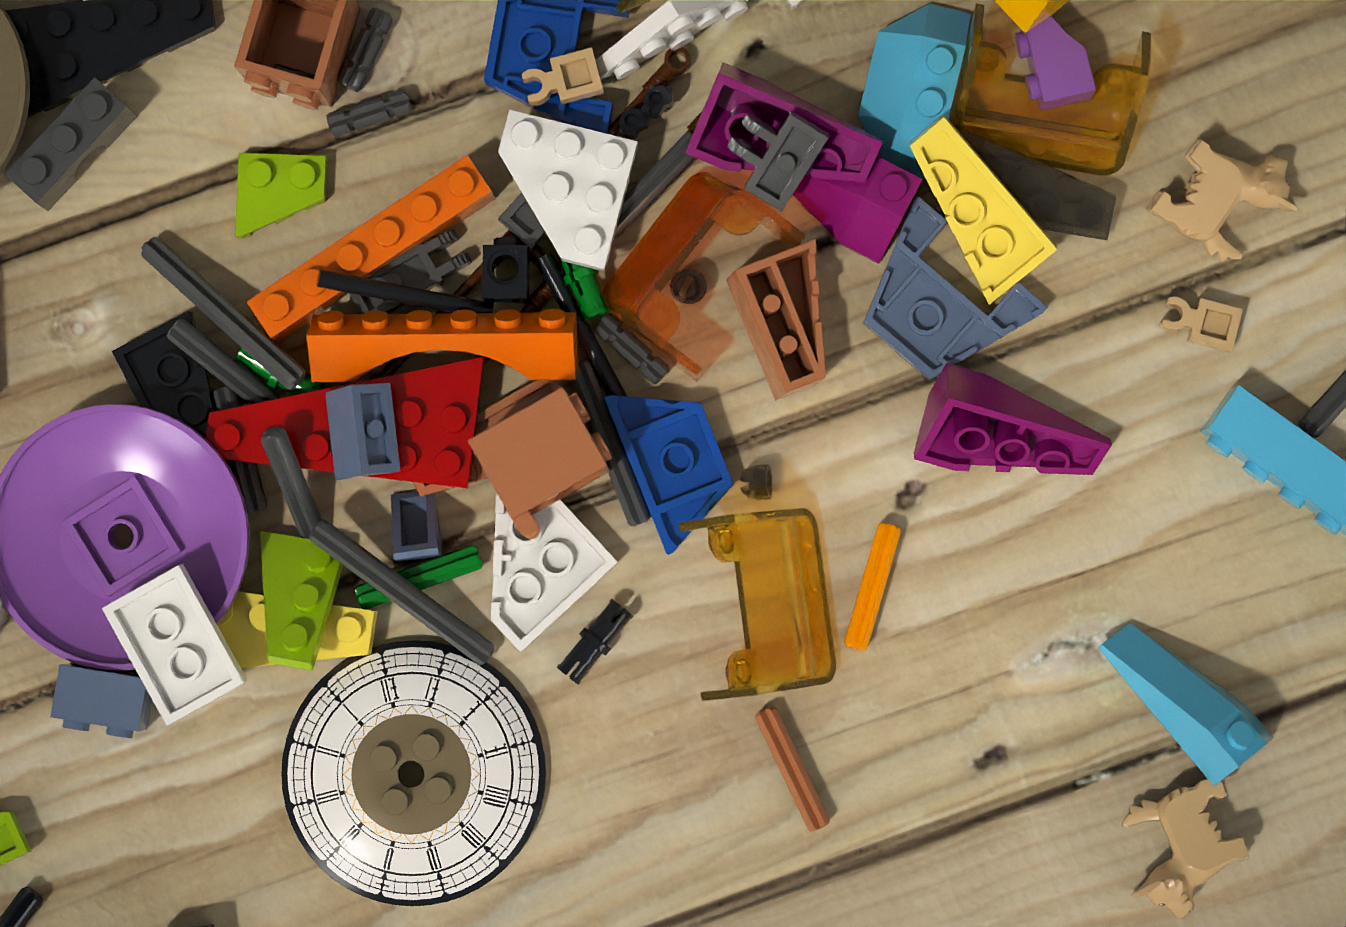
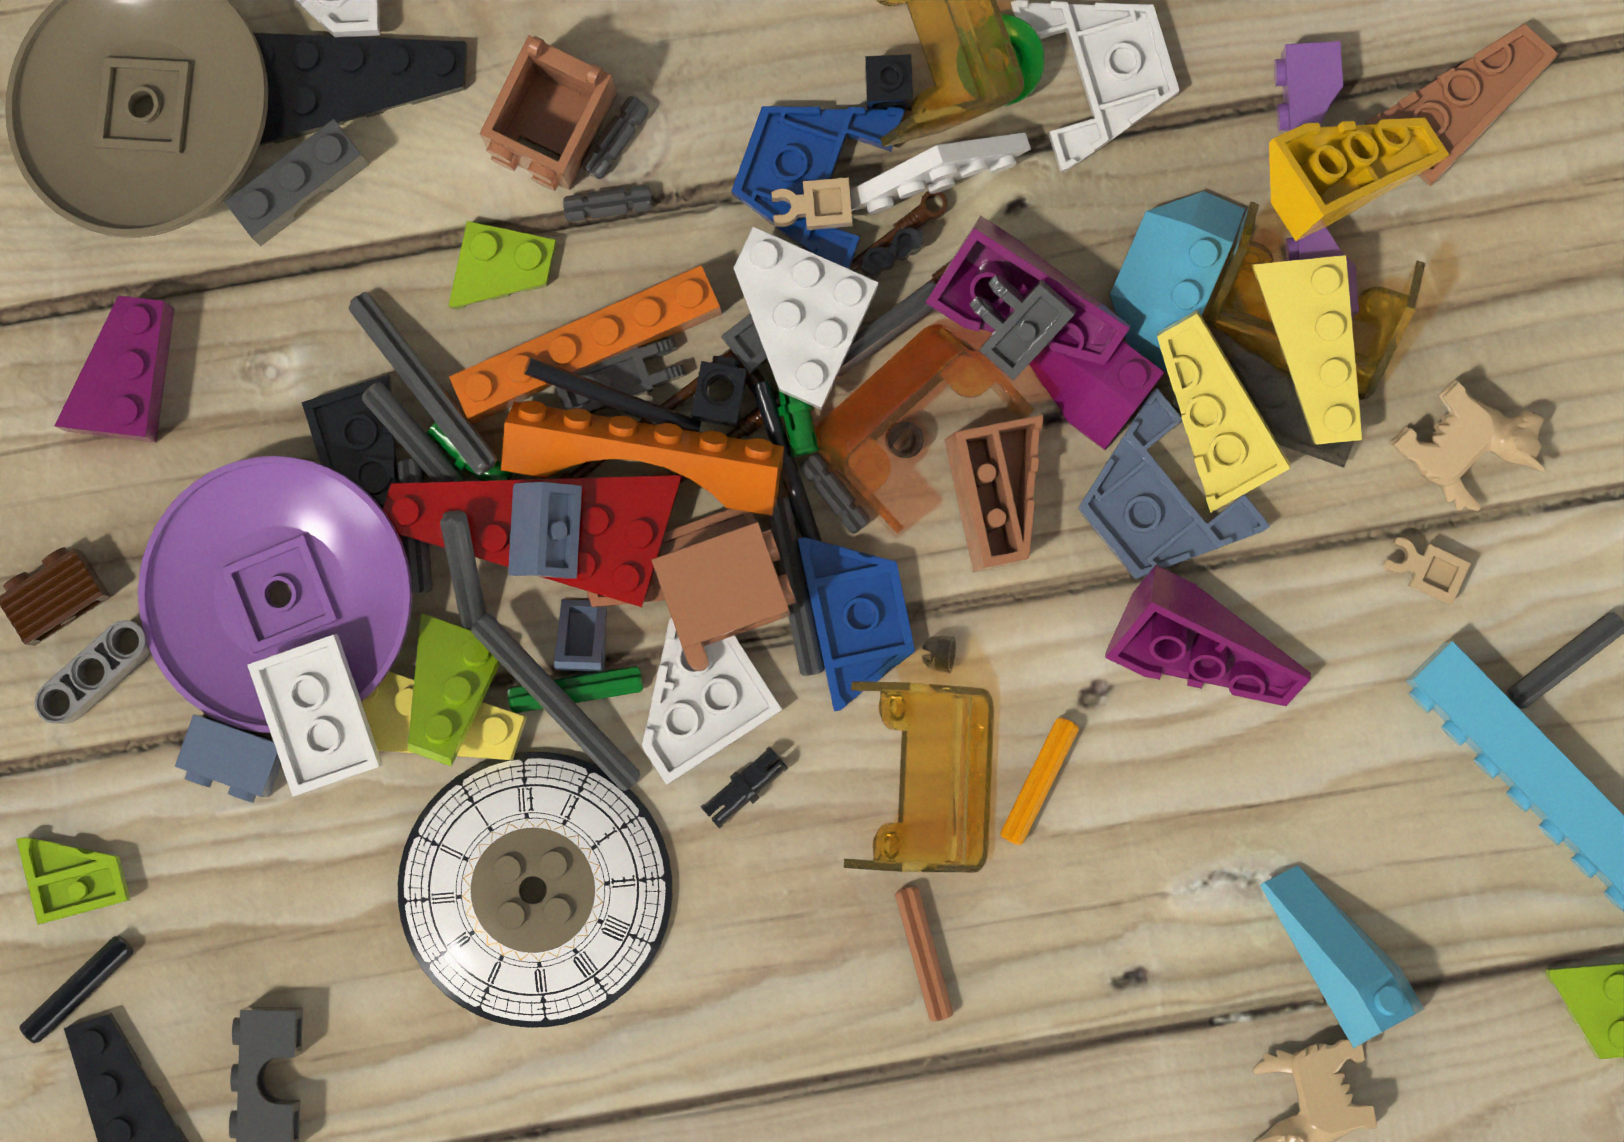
camera: 10 degrees right, 0 degrees up
(1057, 113) = (1315, 333): none -> light yellow wing

